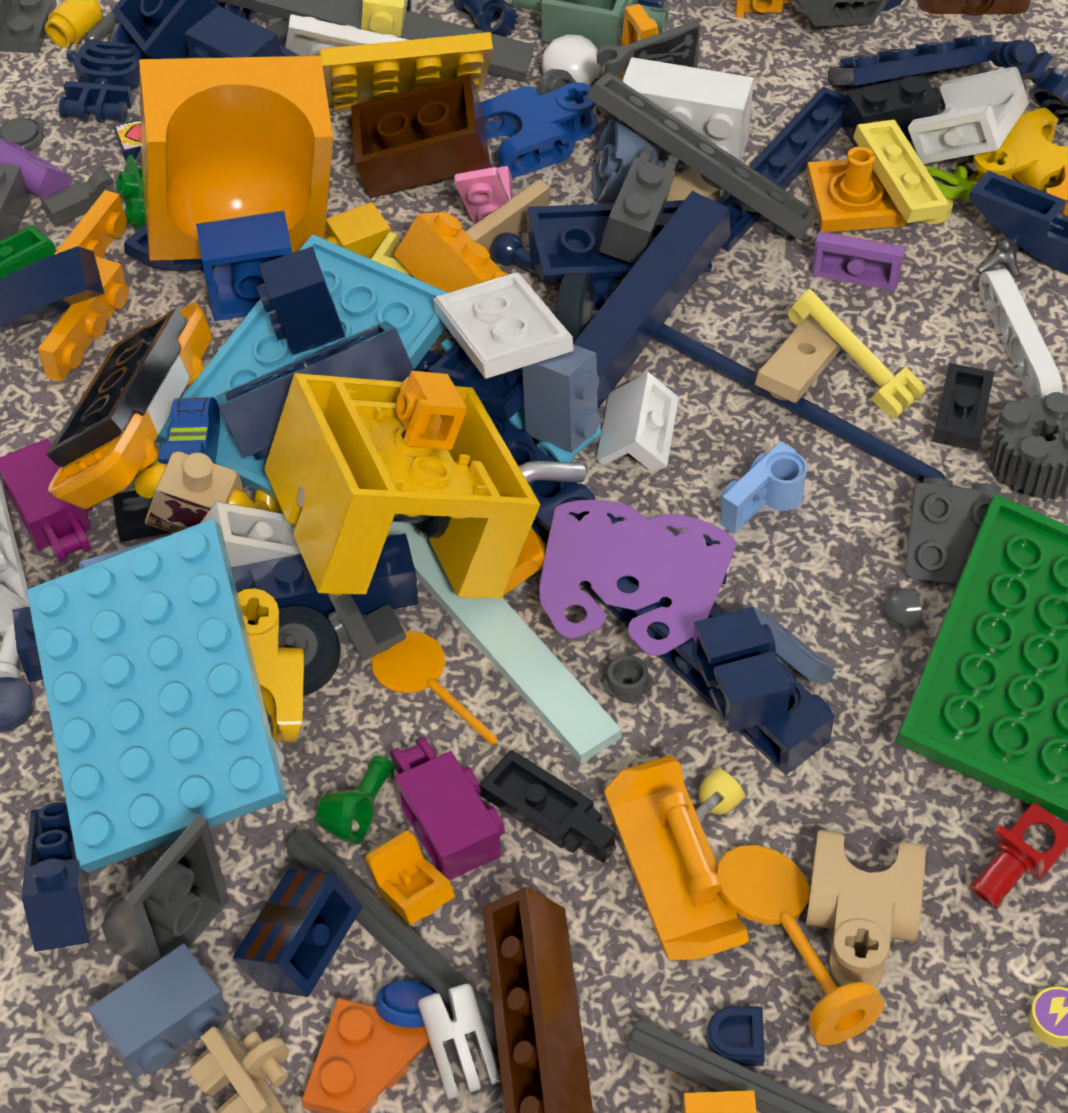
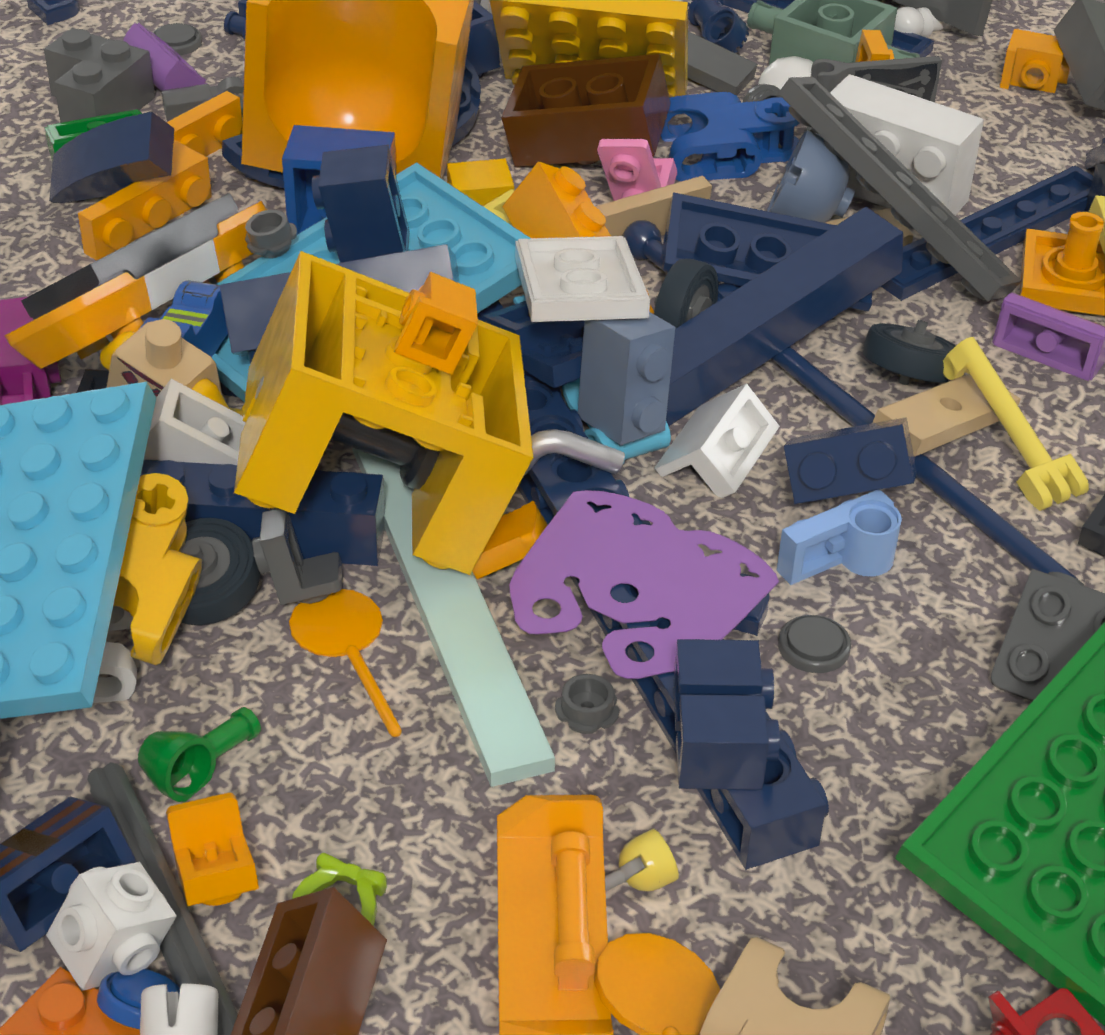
camera: 15 degrees right, 10 degrees down
(219, 333) = (269, 233): none -> dark grey plate
(367, 957) = (110, 923): none -> white brick
(446, 809) = (296, 789): magenta brick -> none
(497, 865) = (331, 869): none -> lime piece
(548, 806) = (424, 820): black hinge -> none
(638, 207) = (799, 212): dark grey hinge -> none
(752, 421) = (850, 460): none -> dark blue brick
(757, 304) = (908, 351): none -> black wheel
(770, 579) = (814, 644): none -> dark grey piece
(796, 653) = (806, 723): sand blue plate -> none
(904, 609) = (970, 715): dark grey hinge -> none

